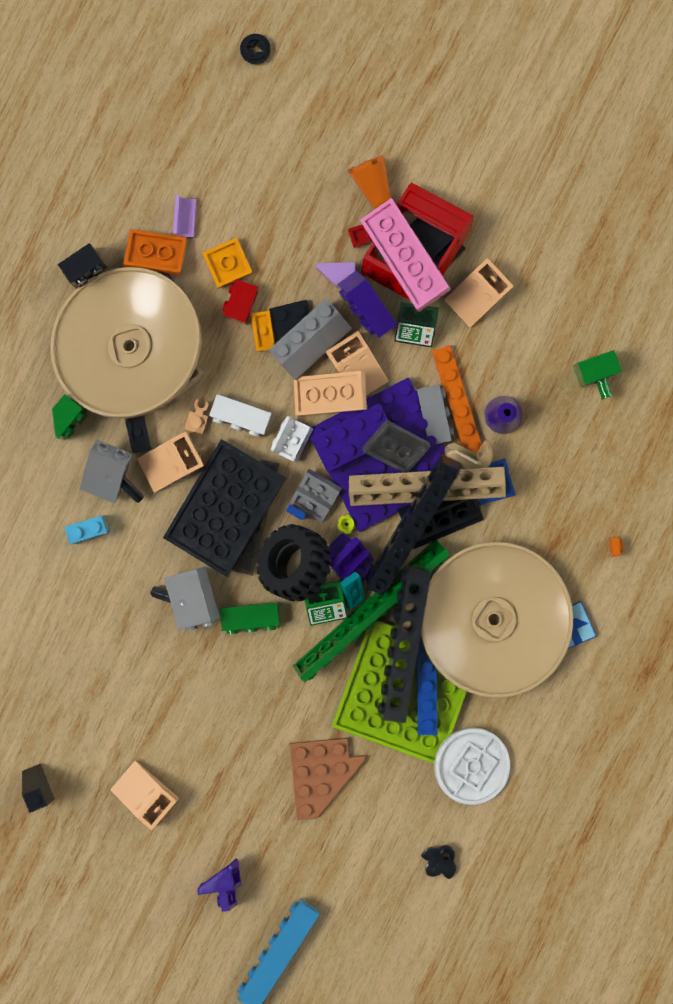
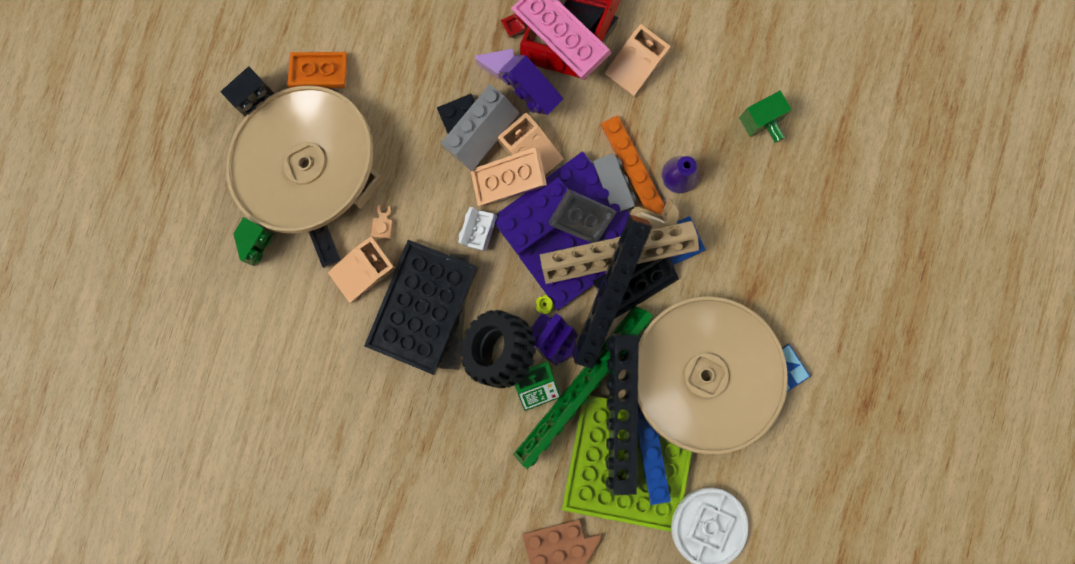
camera: 10 degrees left, 5 degrees down
(86, 529) = (287, 350): medium azure brick -> none
(107, 473) = (298, 289): light grey piece -> none
(184, 217) = (341, 33): lavender panel -> none
(190, 598) = (399, 402): light grey piece -> none
(227, 263) = (389, 70): light orange plate -> none
(240, 301) = (407, 105): red brick -> none
(240, 415) = (423, 214): white brick -> none
(250, 617) = (462, 412): green brick -> none
(262, 330) = (433, 129): light orange plate -> none
(295, 512) = (492, 300): blue tile -> none
(315, 495) = (509, 281): light grey slope -> none
(352, 590) = (561, 368): teal plate -> none
(415, 326) = (582, 99): slope -> none
(616, 546) = (813, 284): orange plate -> none

